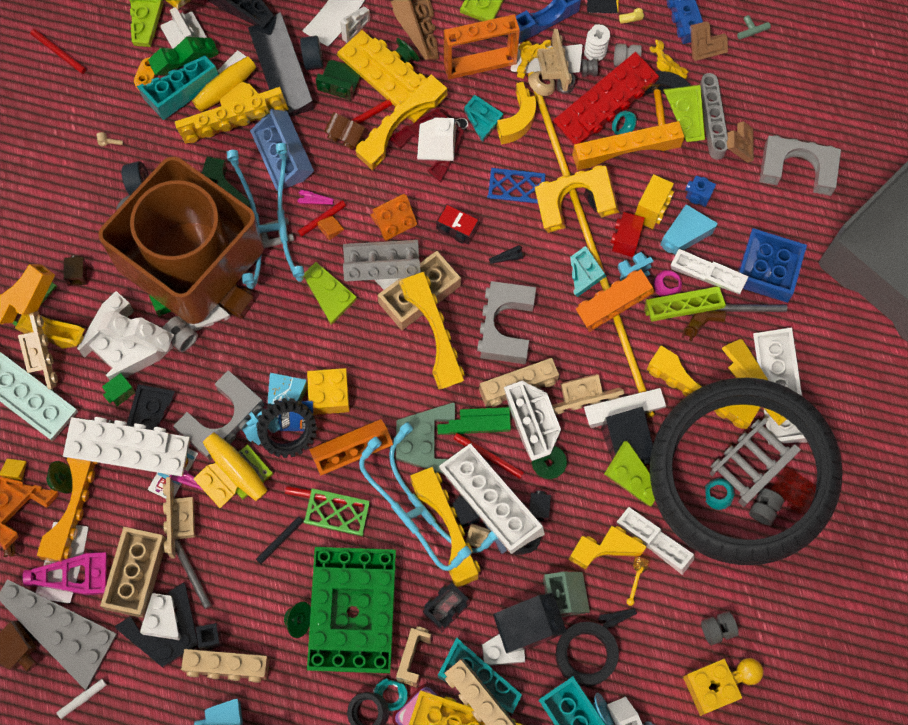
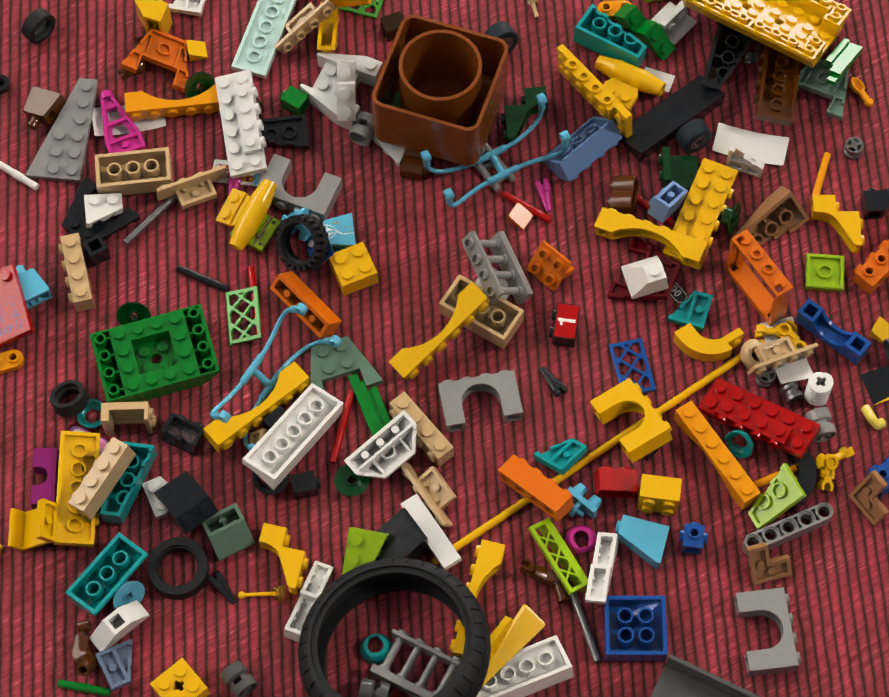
camera: 75 degrees right, 5 degrees down
(329, 292) = (447, 242): lime wing -> none
(370, 96) = (667, 201): none -> medium blue brick

